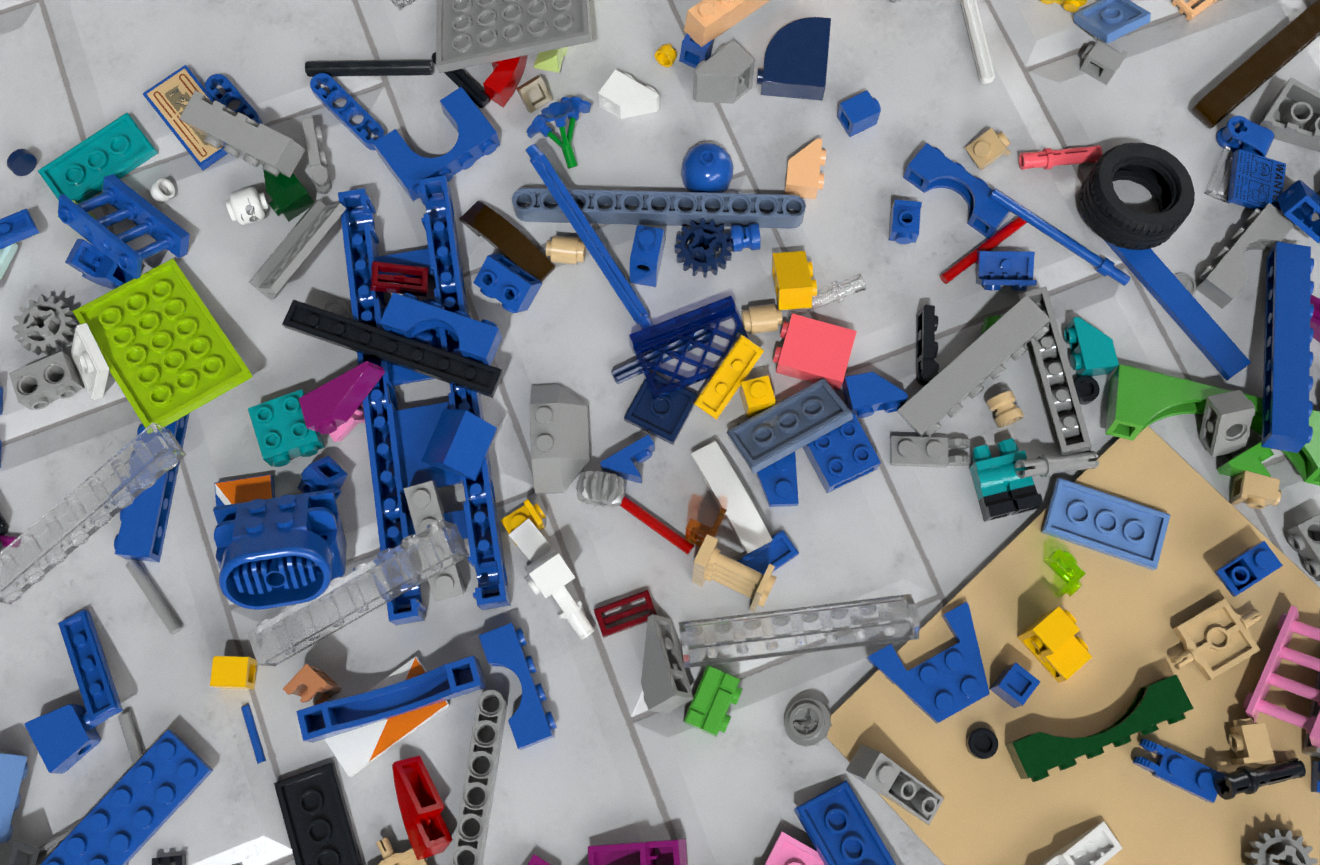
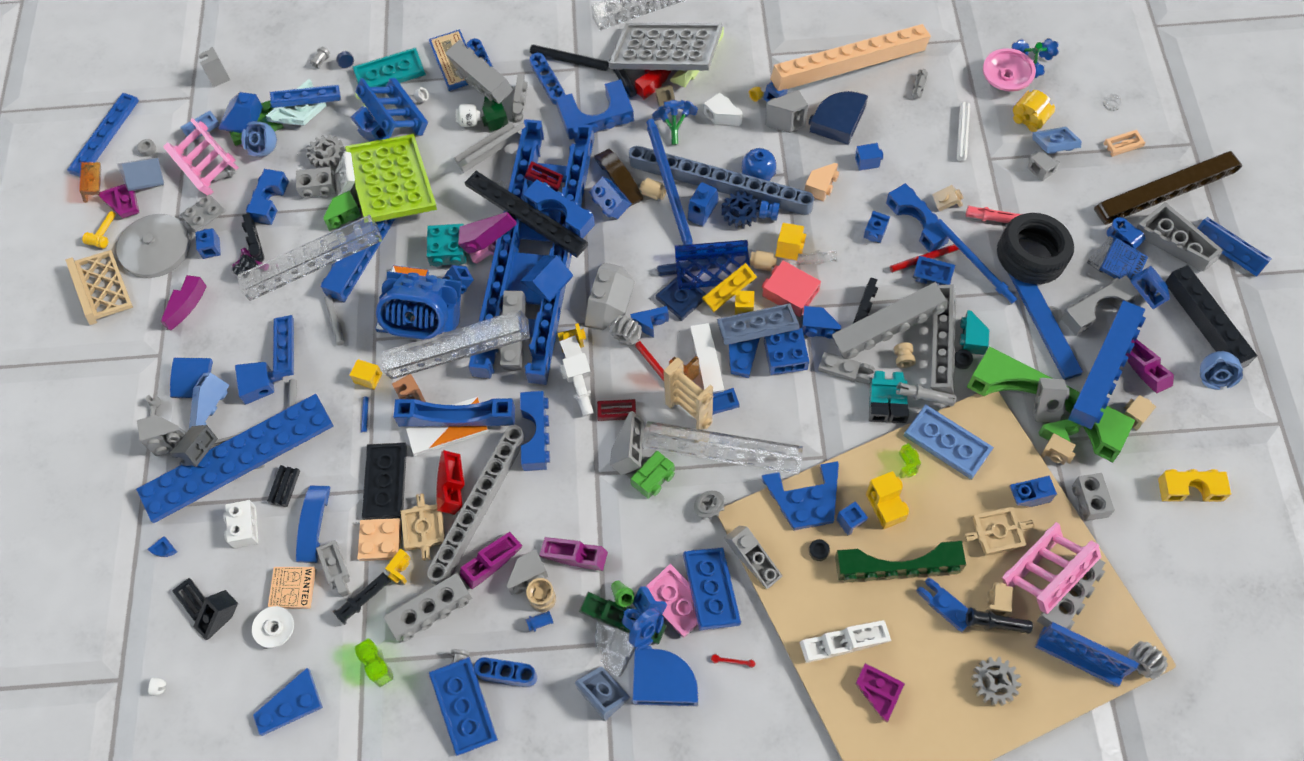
camera: 20 degrees right, 10 degrees down
(103, 416) = (341, 210): none -> bright green slope

